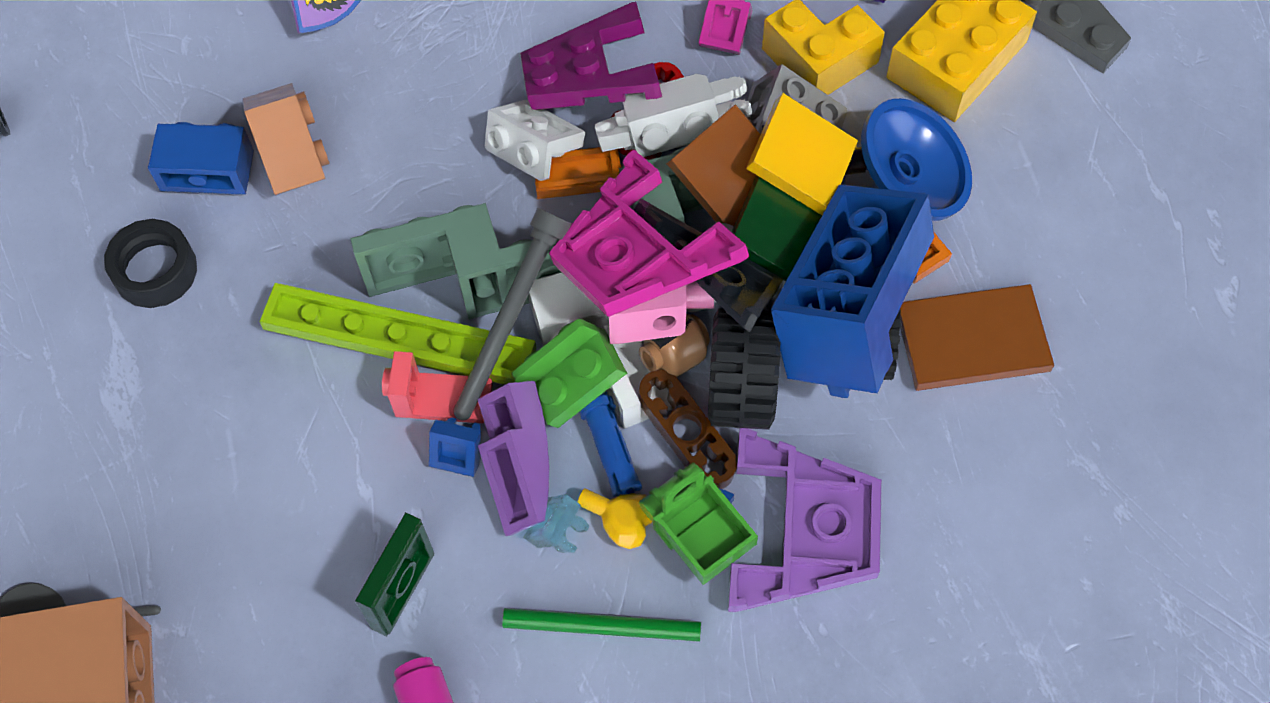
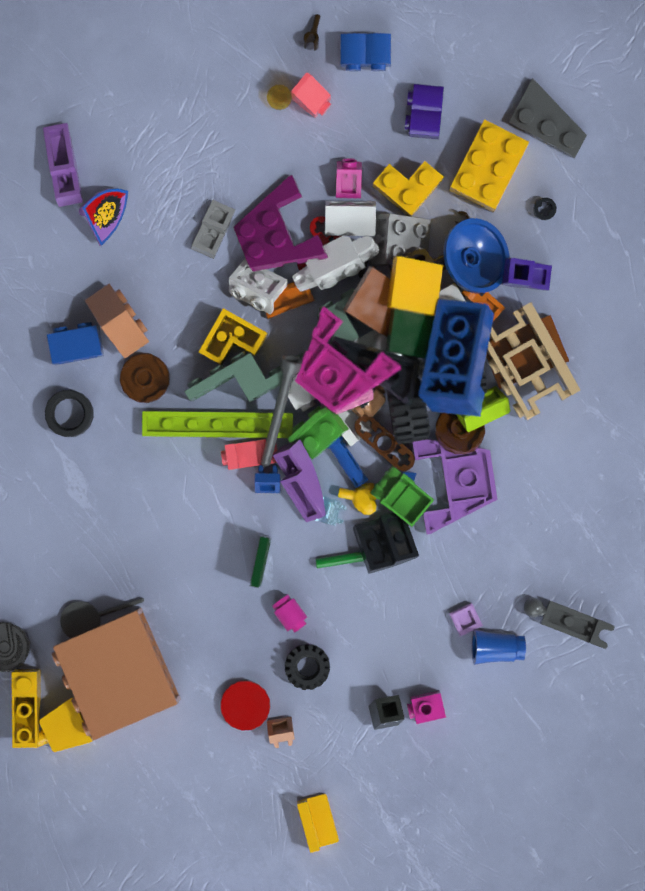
camera: 20 degrees left, 25 degrees up
(300, 242) = (145, 378): none -> reddish brown tile
(468, 179) = (229, 331): none -> yellow brick
(489, 53) = (213, 229): none -> light grey slope
(645, 604) = (385, 542): none -> black slope
(716, 63) = (350, 218): none -> white panel
(832, 434) = (454, 437): none -> reddish brown tile
(893, 409) = (493, 407): none -> lime slope
(991, 206) = (526, 274): none -> dark purple brick
(1015, 330) = (546, 351): none -> tan fence
(1049, 117) = (539, 203): none -> black bush

